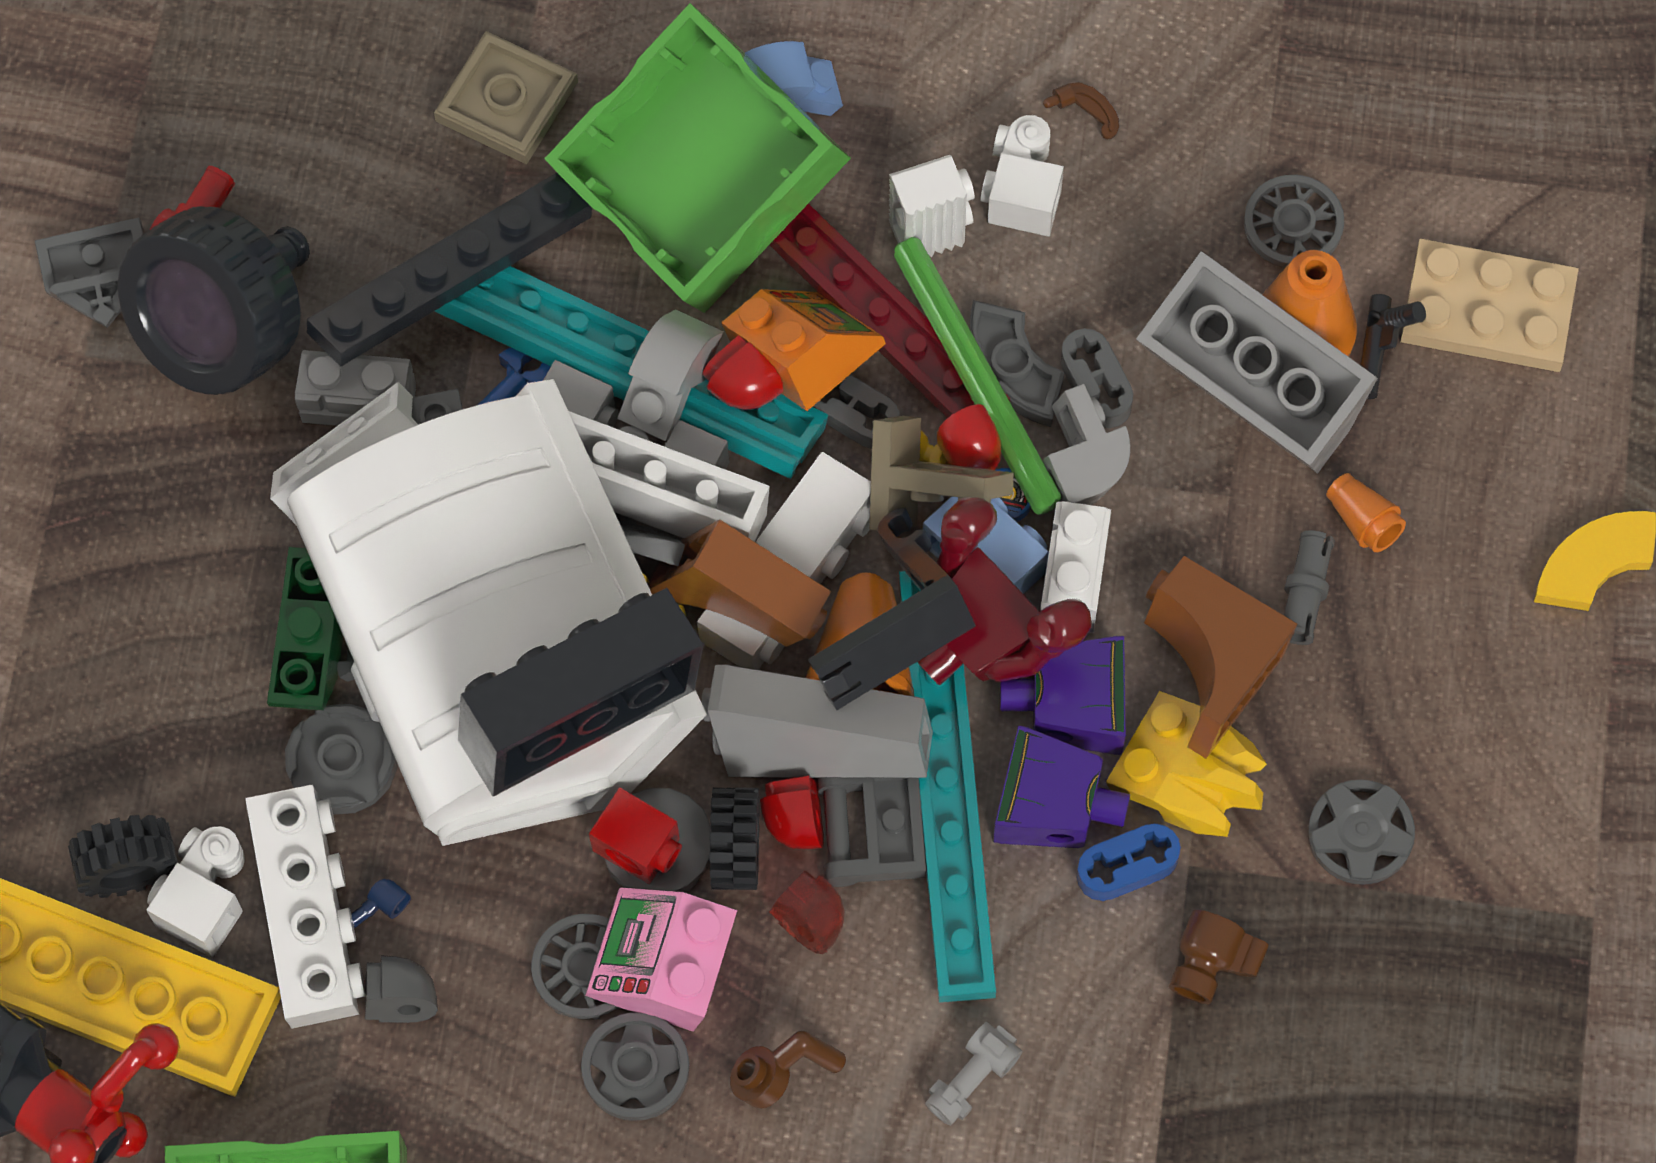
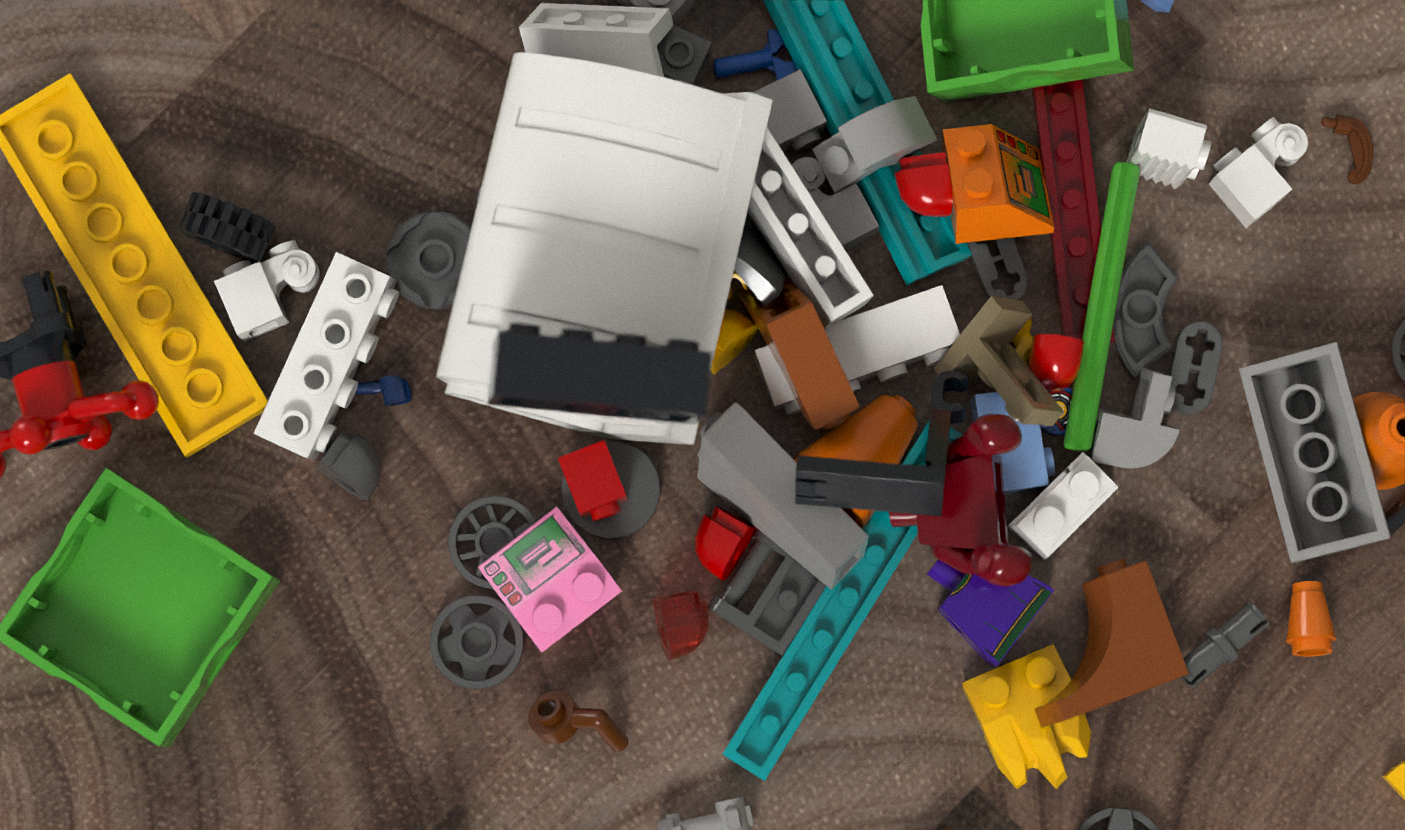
camera: 35 degrees right, 15 degrees up
(306, 640) = (459, 165): dark green slope -> none
(734, 838) = (662, 533): black tyre -> none
(1053, 794) = (917, 666): dark purple torso -> none
(1123, 850) = (935, 740): blue beam -> none

